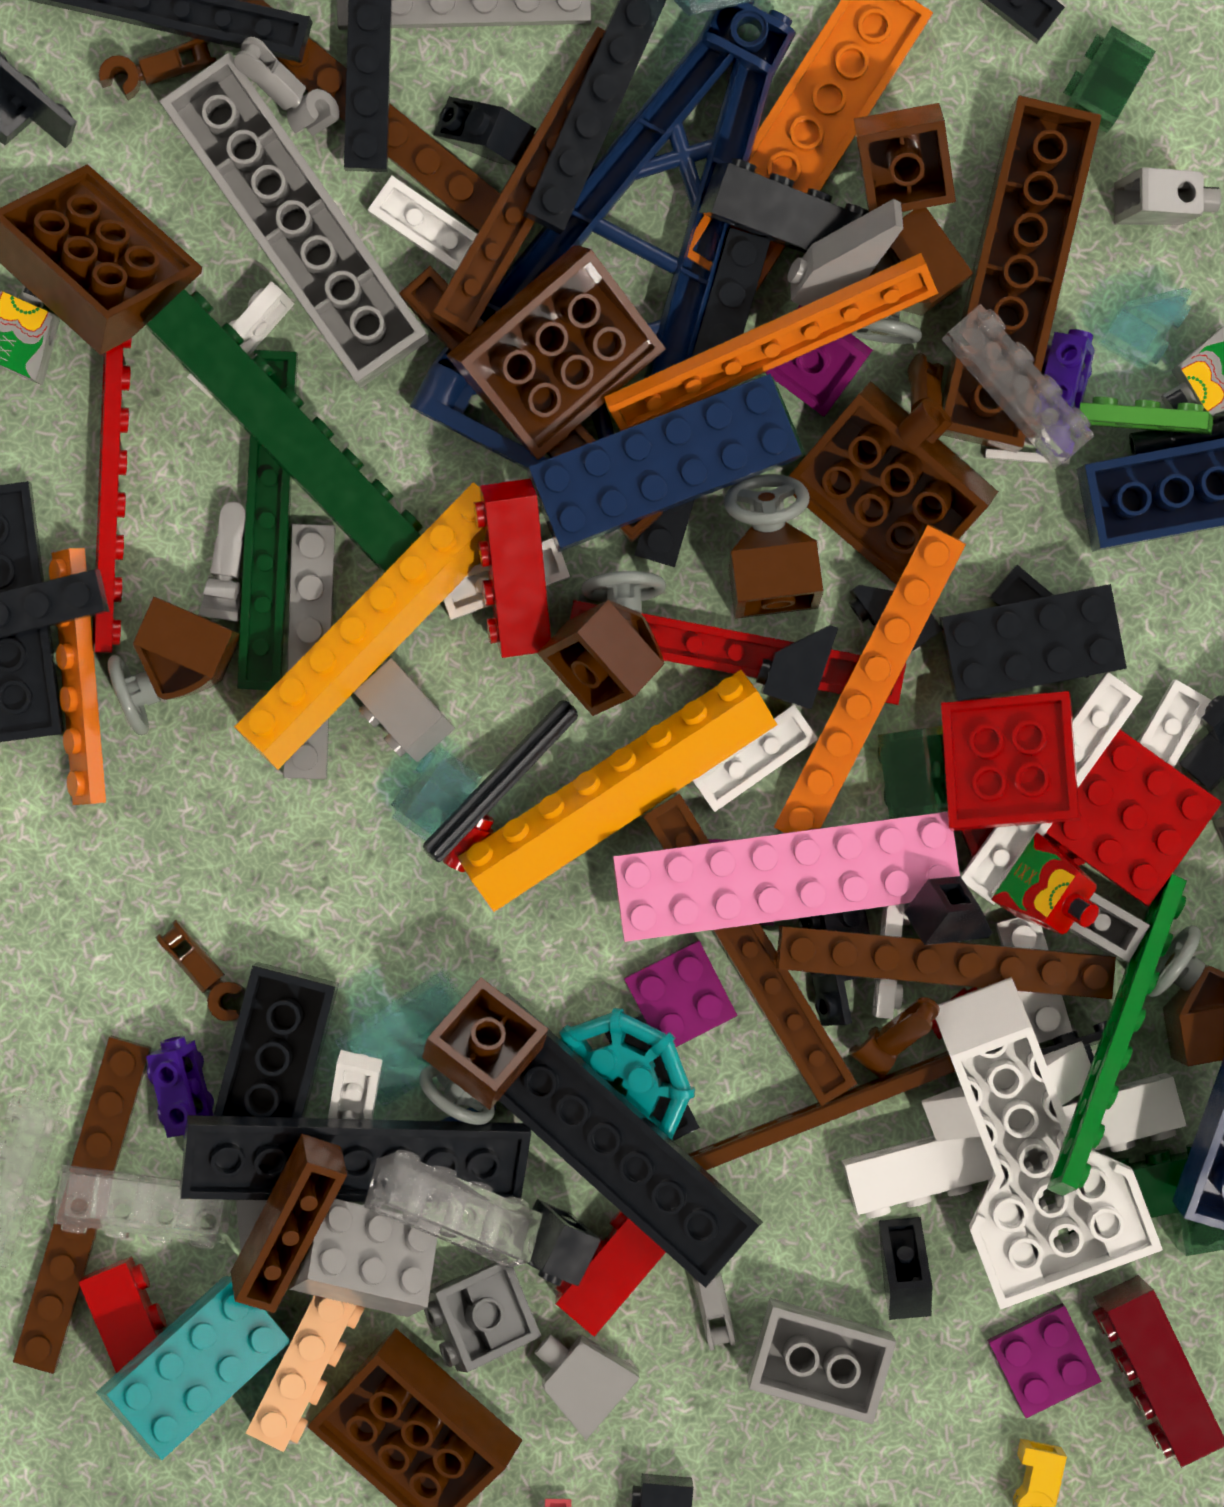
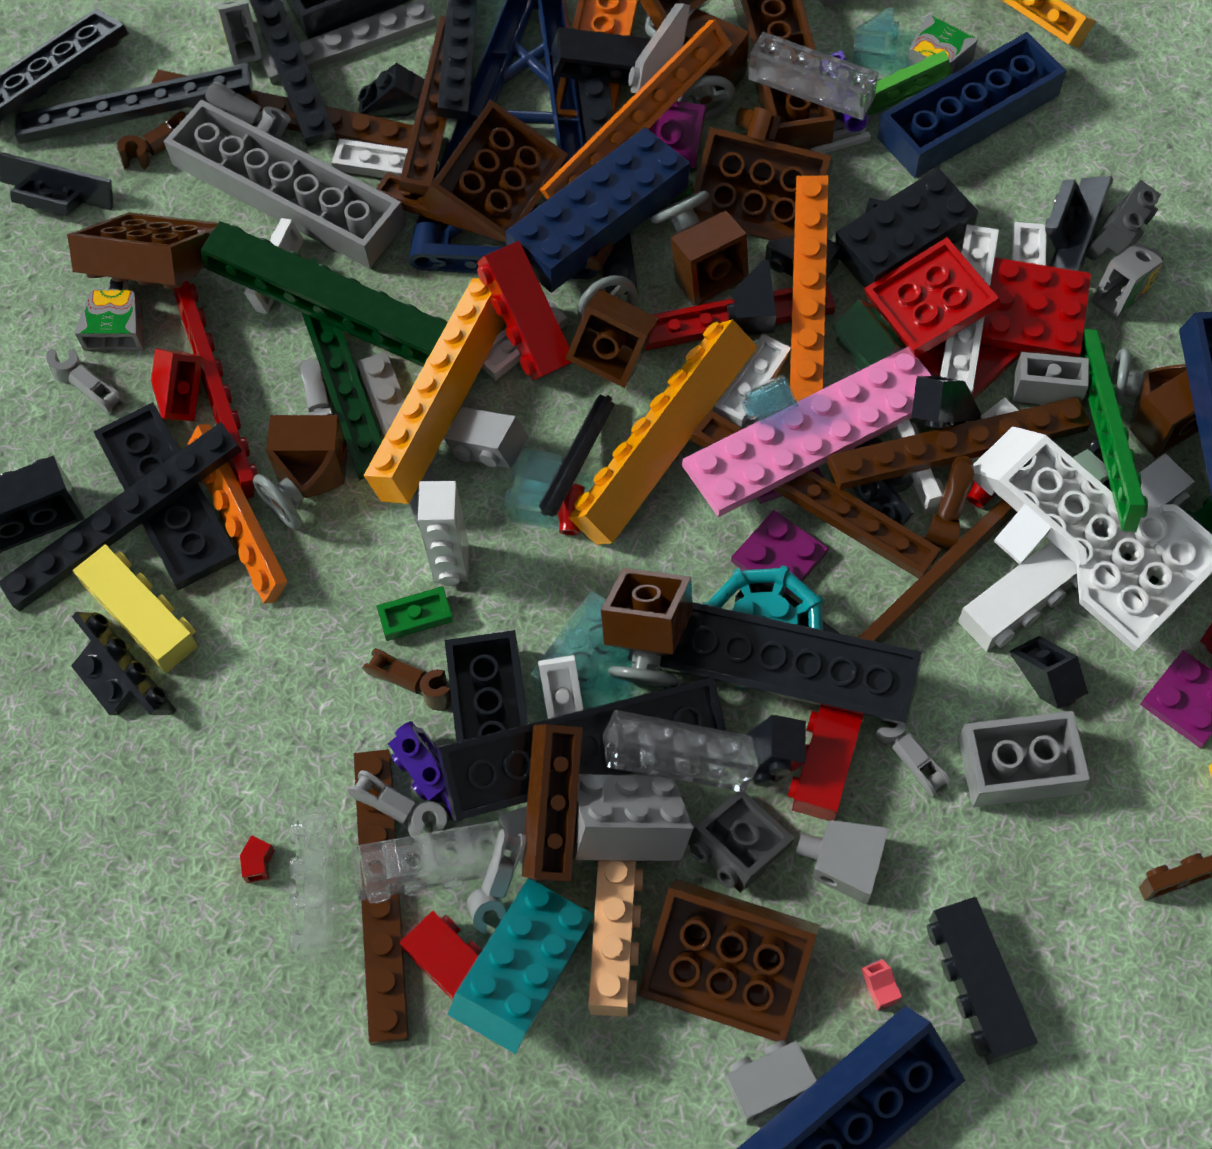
camera: 15 degrees left, 25 degrees down
(64, 467) = (176, 383): none -> red slope
(133, 1128) = (398, 805): none -> light grey piece
(194, 1269) = (496, 879): none -> light grey piece
(238, 895) = (414, 613): none -> green plate
(296, 846) = (443, 531): none -> white brick
(744, 825) = (768, 400): none -> clear light blue slope
(1048, 889) = (1004, 360): torso -> none

